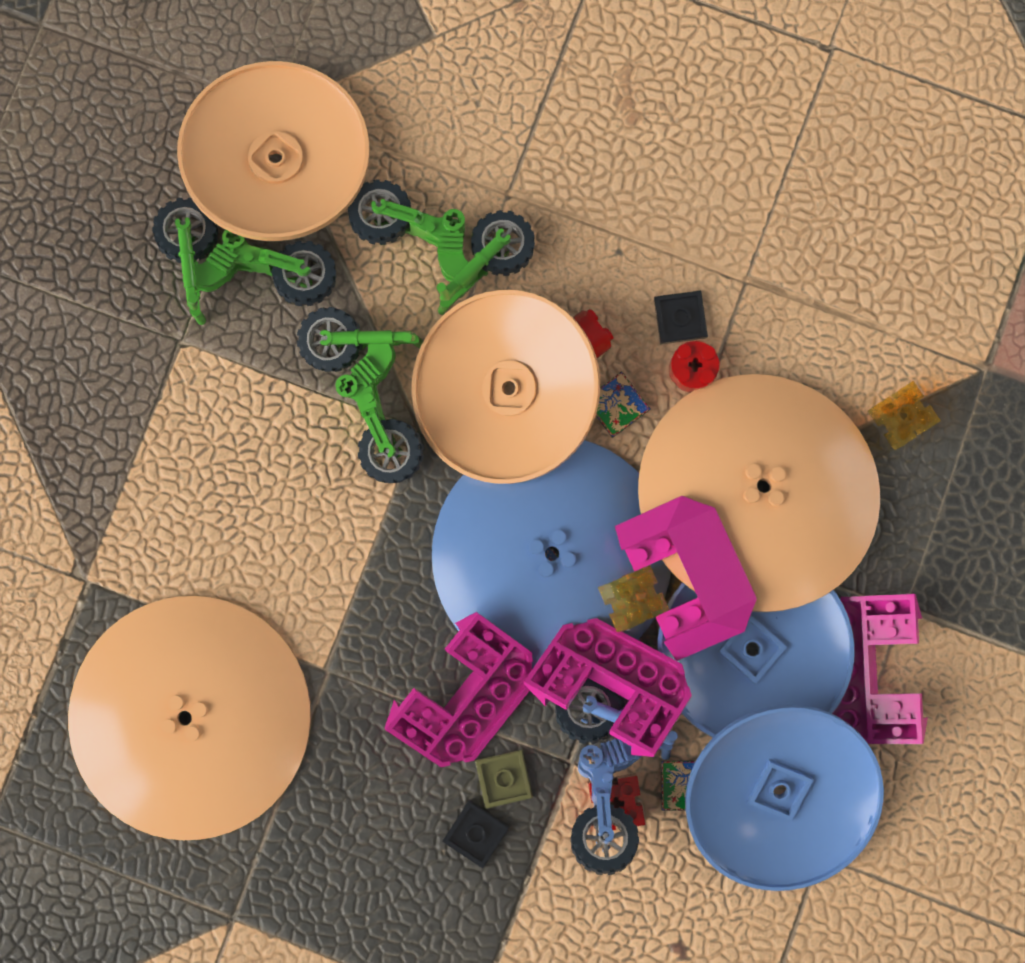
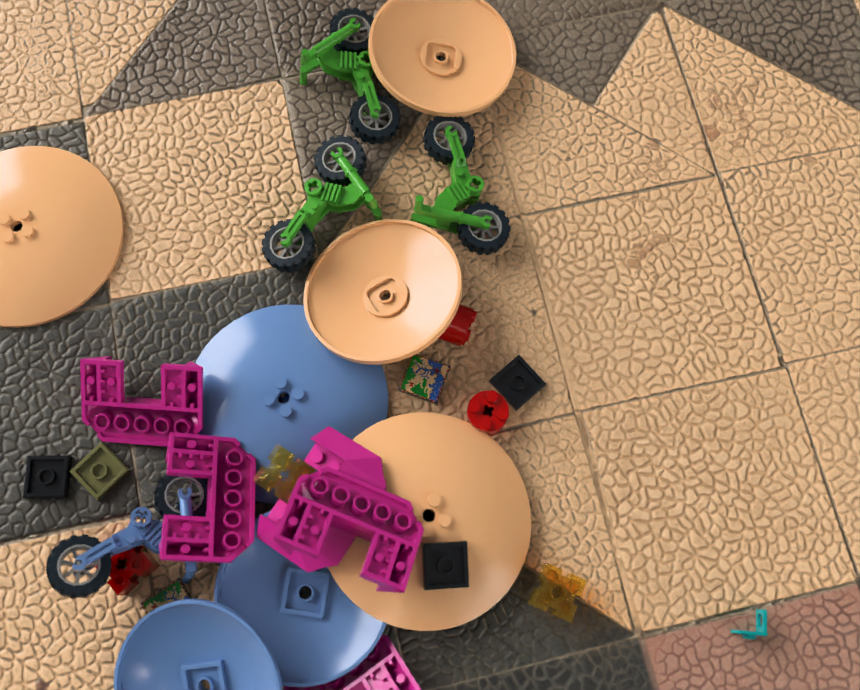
camera: 50 degrees right, 10 degrees down
(725, 541) = (358, 509): none -> dark pink slope
(819, 500) = (445, 565): none -> black tile

